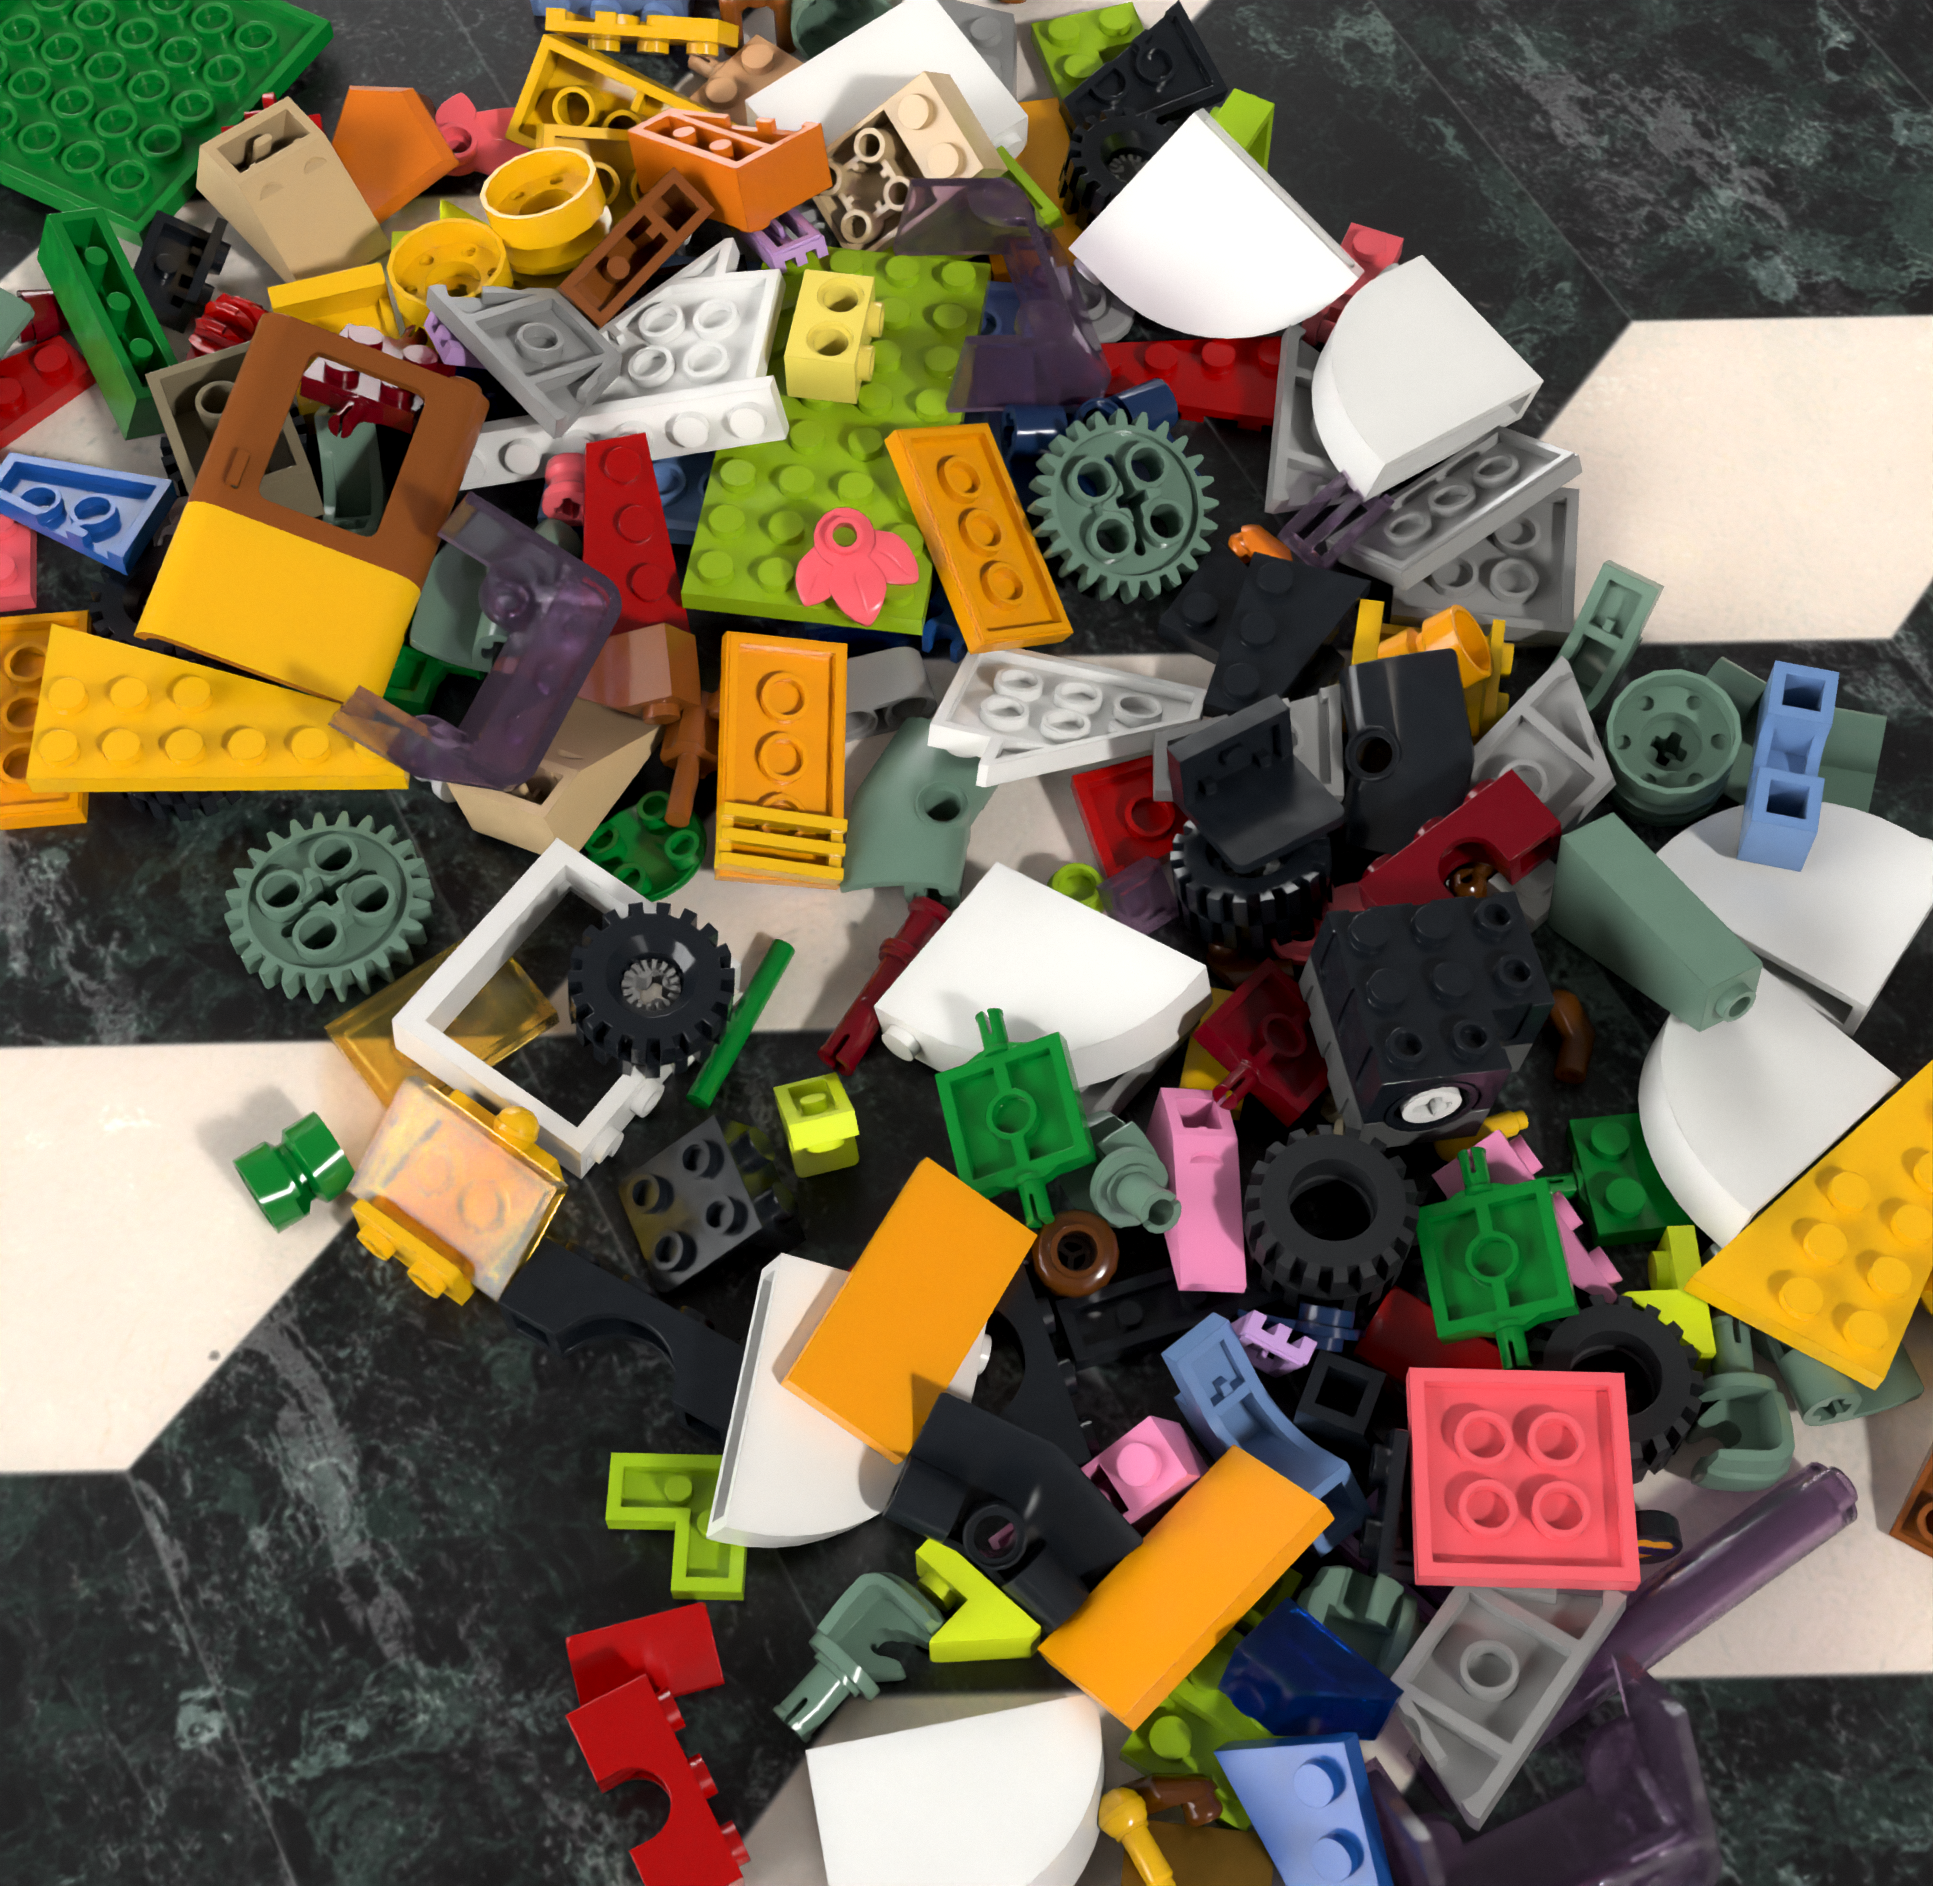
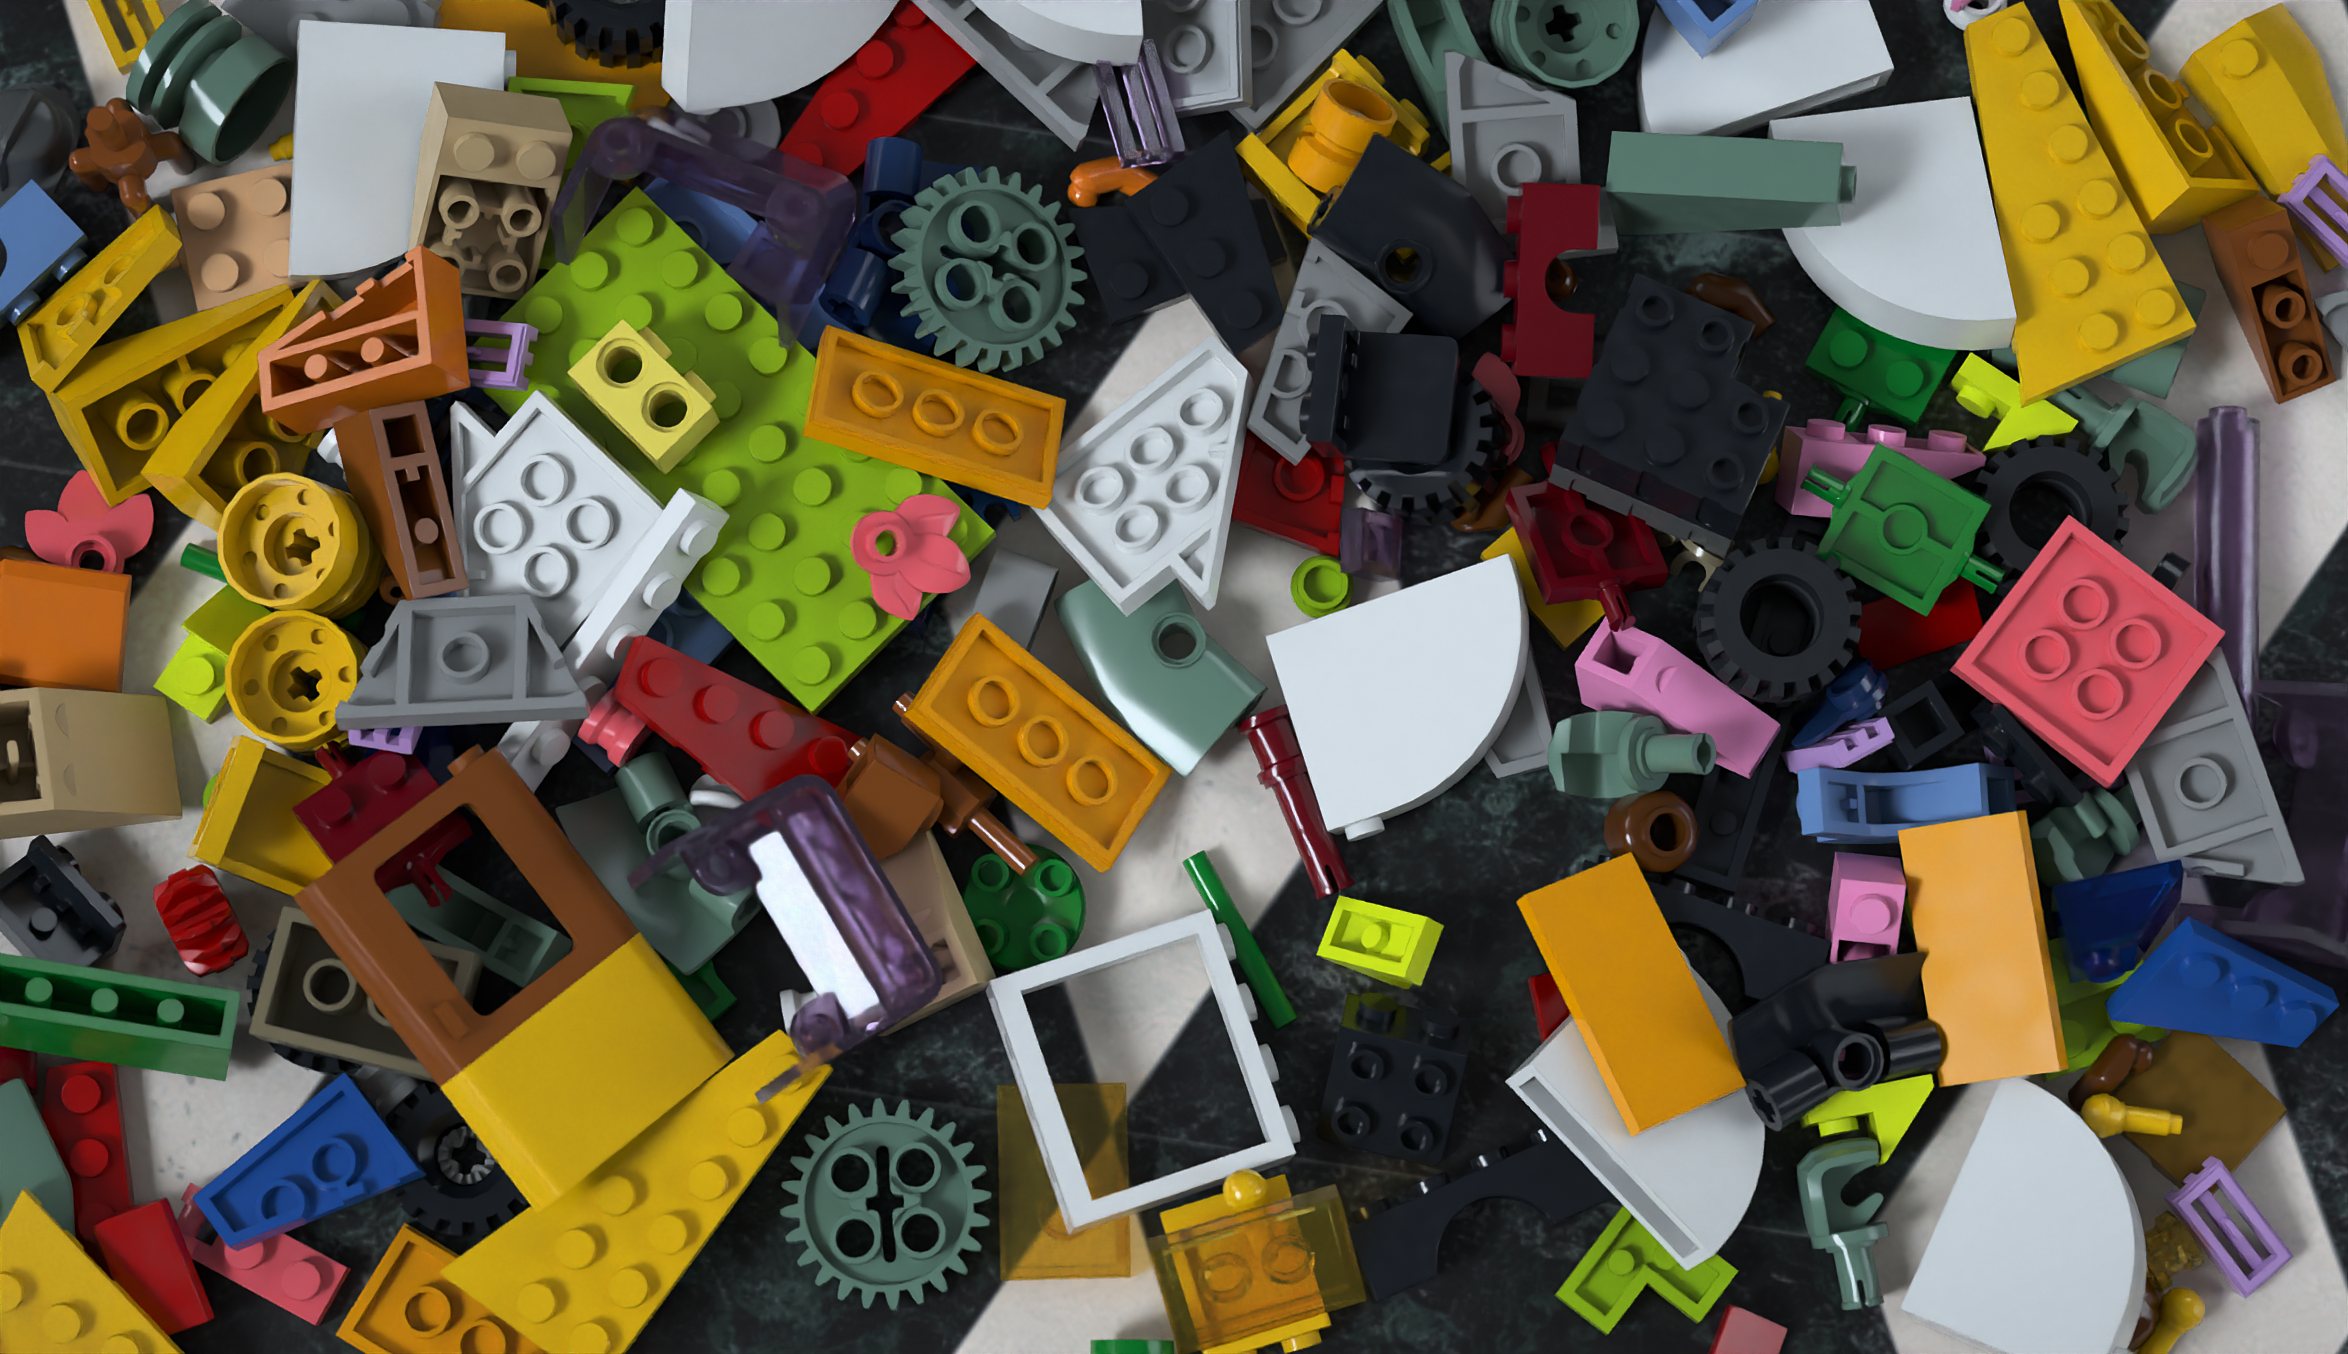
camera: 55 degrees left, 20 degrees up
(632, 956) = (1210, 960): black bush -> none
(833, 848) = (1150, 762): yellow tile -> none
(1016, 1117) = (1525, 797): green plate -> none

